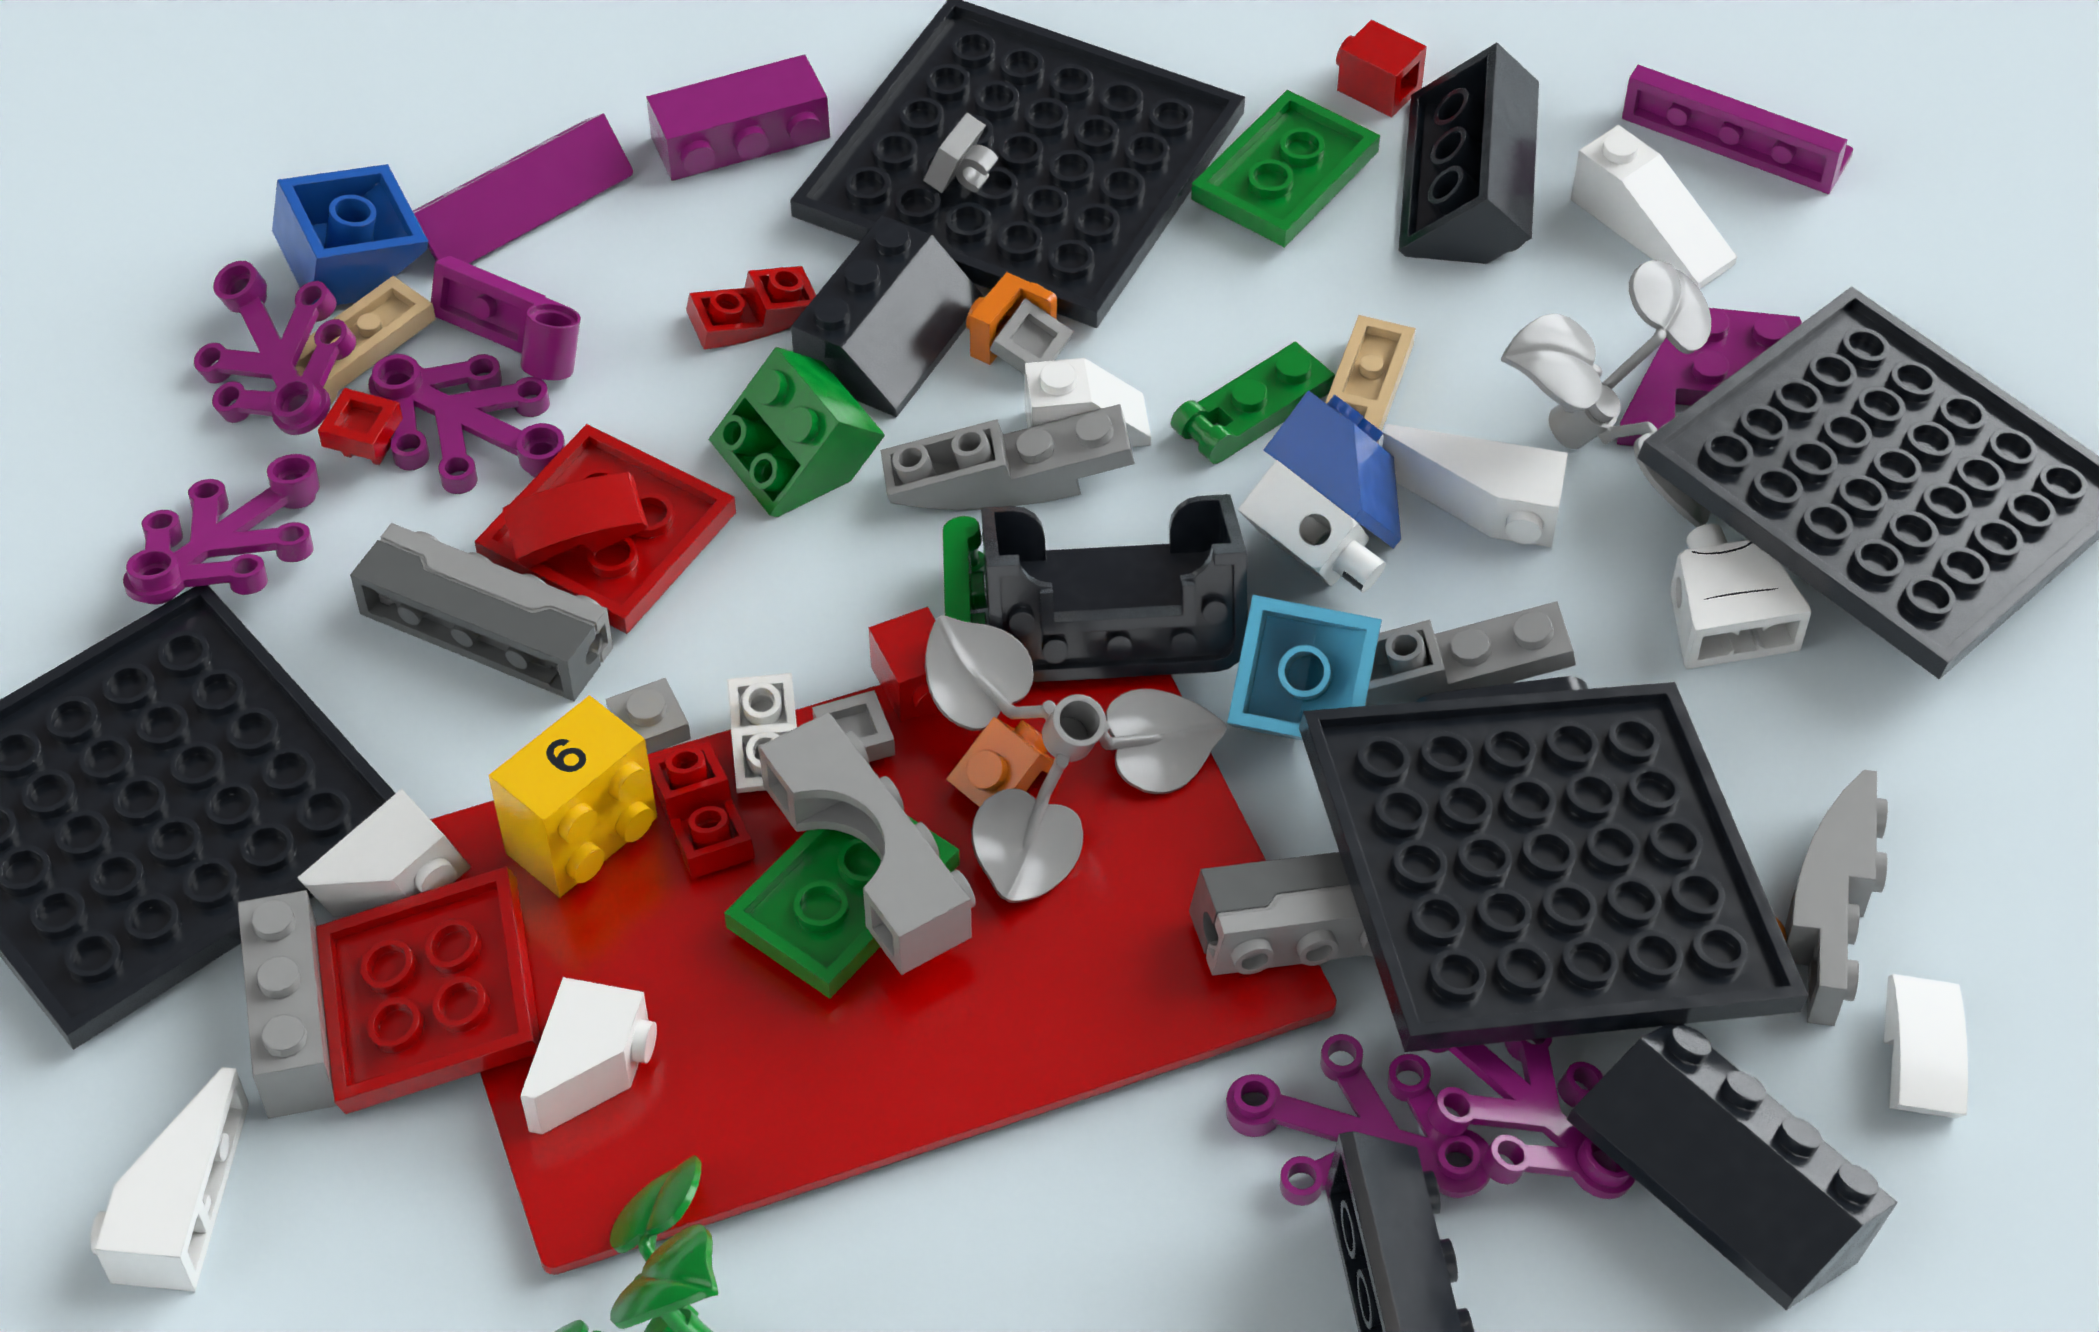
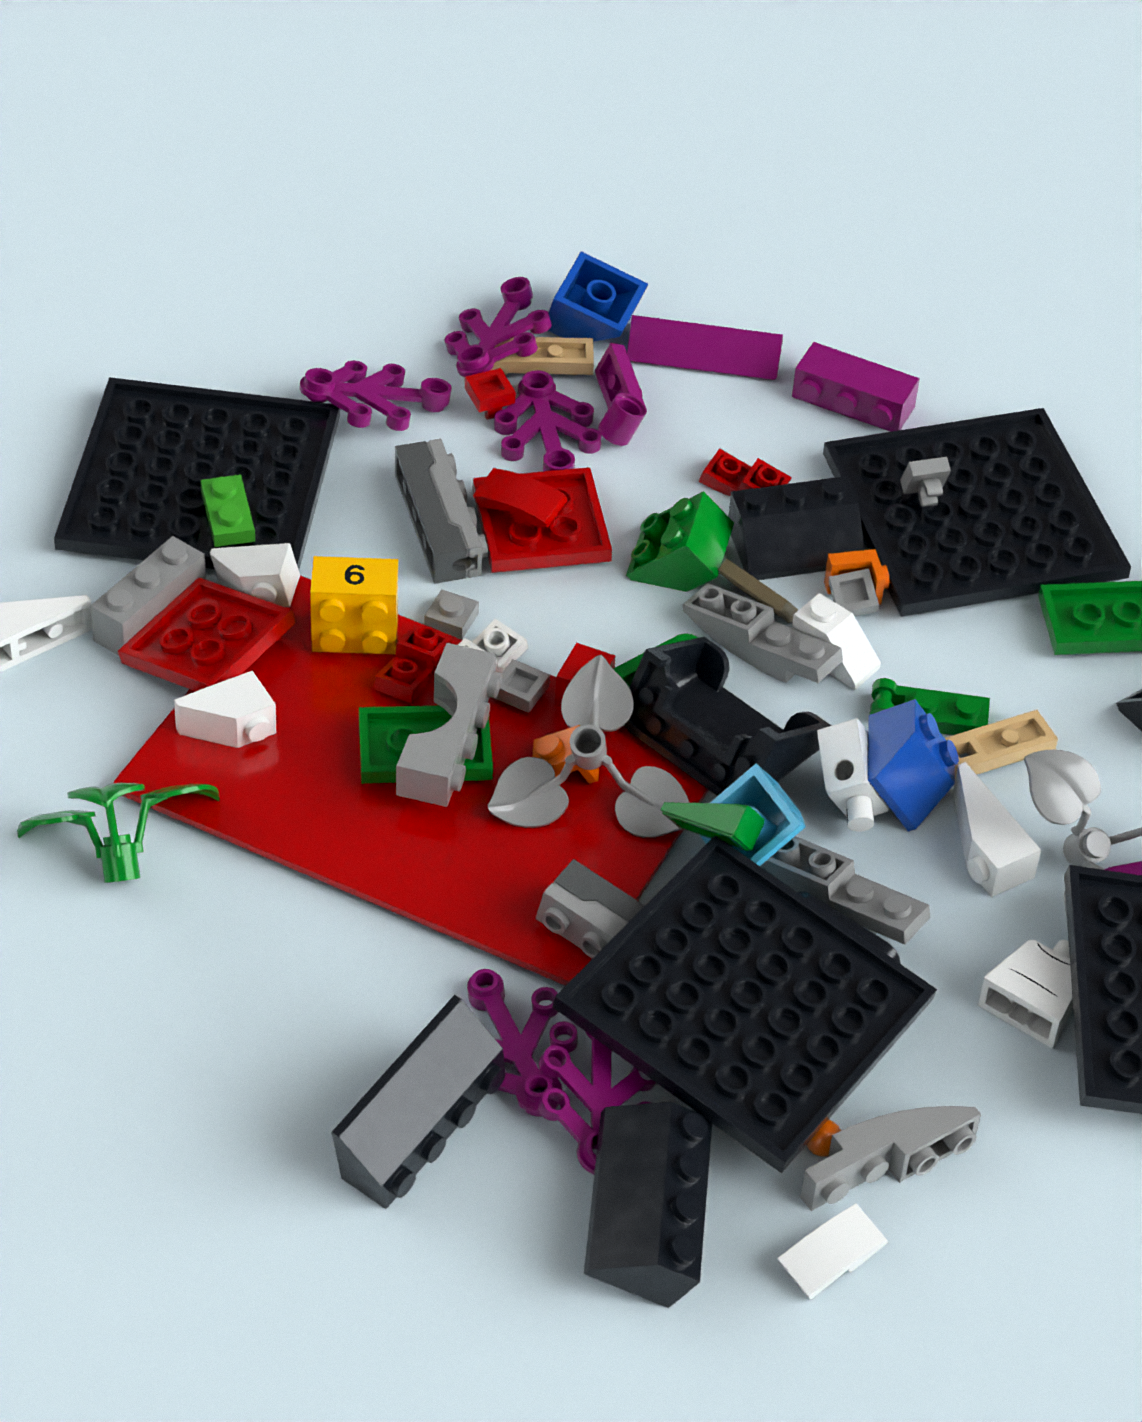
camera: 45 degrees right, 5 degrees down
(248, 816) = (227, 510): none -> bright green plate
(936, 415) = (757, 590): none -> dark tan tile
(1300, 687) = (732, 823): none -> green slope

